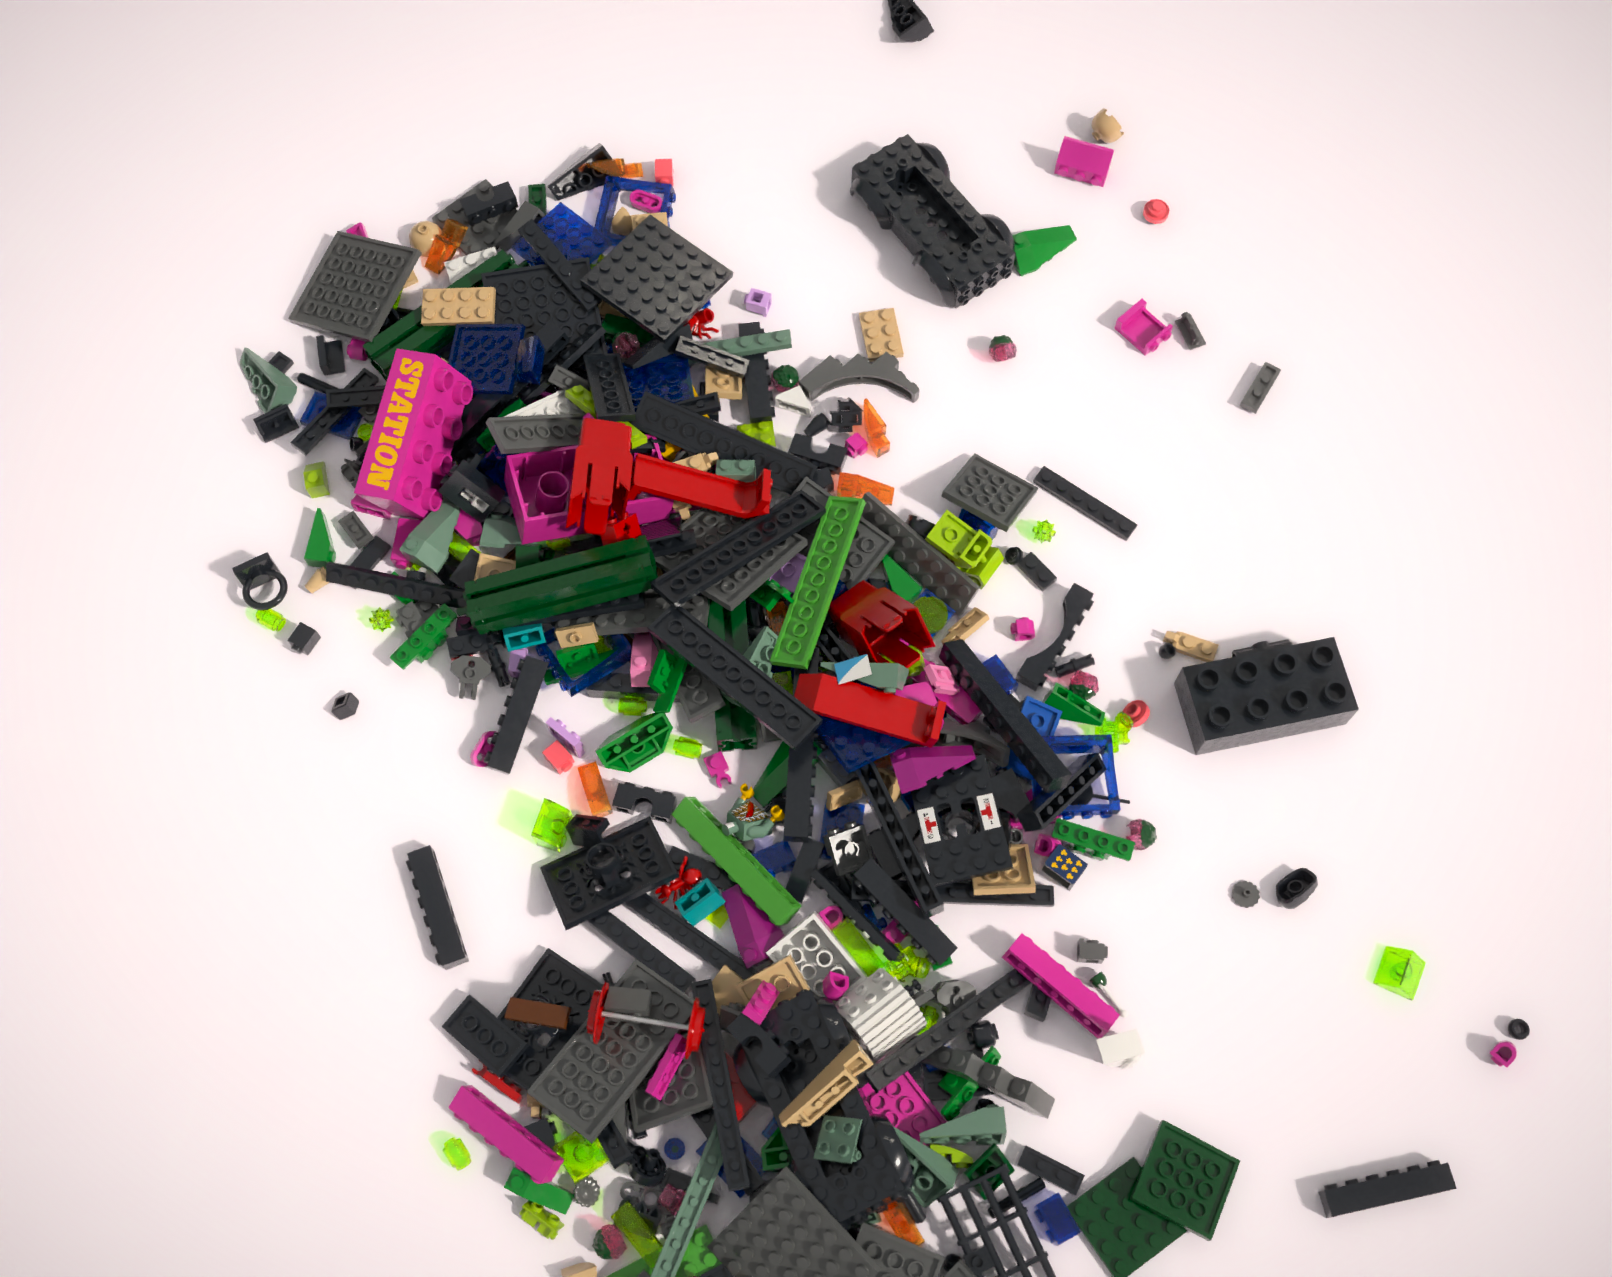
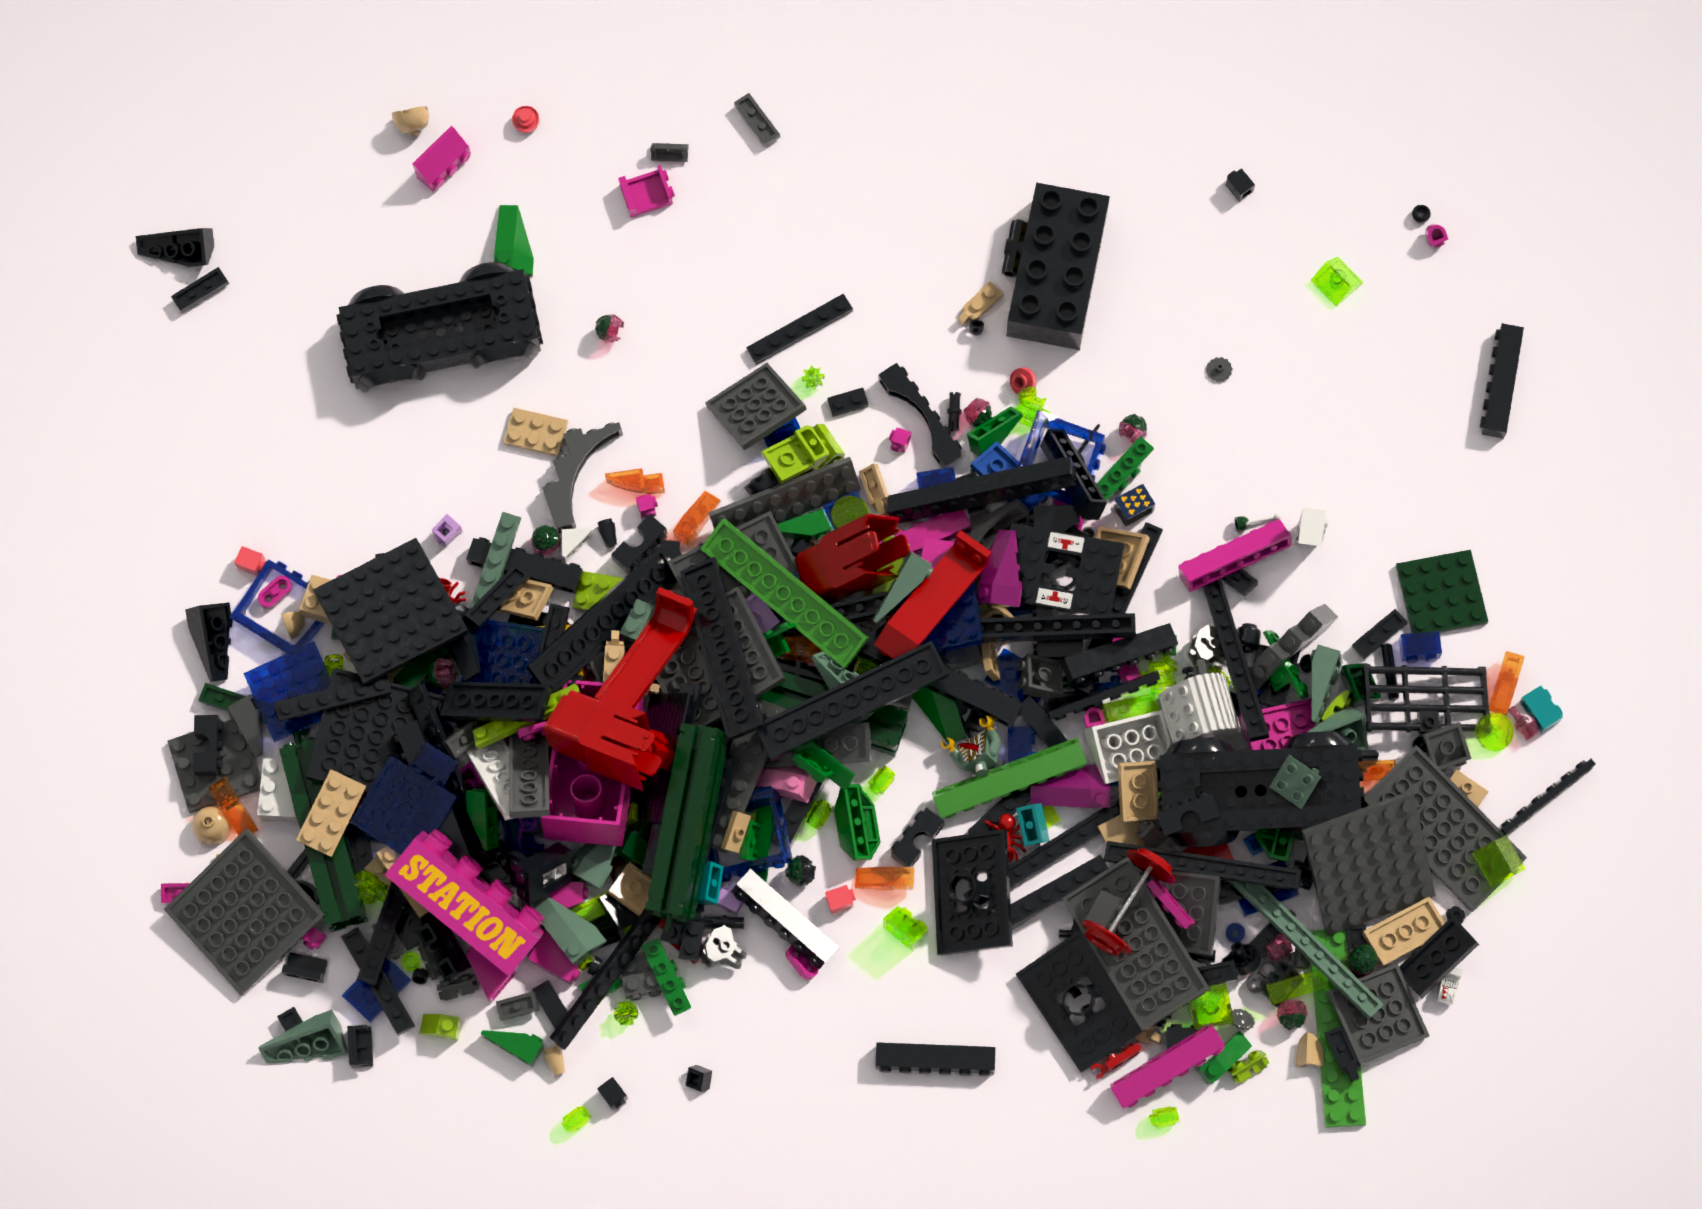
camera: 65 degrees left, 5 degrees up
(256, 573) = (527, 1111): black tile -> none
(314, 383) = (335, 989): black axle -> none
(485, 1036) = (1073, 1054): black plate -> none
(537, 1013) = (1080, 994): reddish brown tile -> none
(569, 740) = (833, 879): lavender plate -> none
(570, 710) = (800, 871): none -> piece
(586, 830) = (924, 896): black panel -> none
(617, 168) = (227, 603): clear orange slope -> none
(717, 767) = (908, 762): dark pink plate -> none
(761, 1002) = (1152, 800): dark pink plate -> none
(827, 1087) = (1249, 772): tan wedge -> none
(835, 985) = (1160, 736): dark pink plate -> none
(849, 417) = (616, 498): black piece -> none
(852, 669) = (895, 595): sticker -> none
(878, 45) = (200, 290): none -> black plate
(941, 678) = (923, 529): bright pink plate -> none
(1014, 555) = (821, 418): black plate -> none
(1045, 845) = (1111, 511): dark pink plate -> none
(1091, 951) = (1215, 517): dark grey brick -> none
(1185, 1180) = (1431, 531): dark green plate -> none
(1296, 888) = (1233, 325): black piece -> none
(1444, 834) = (1239, 184): none -> black brick

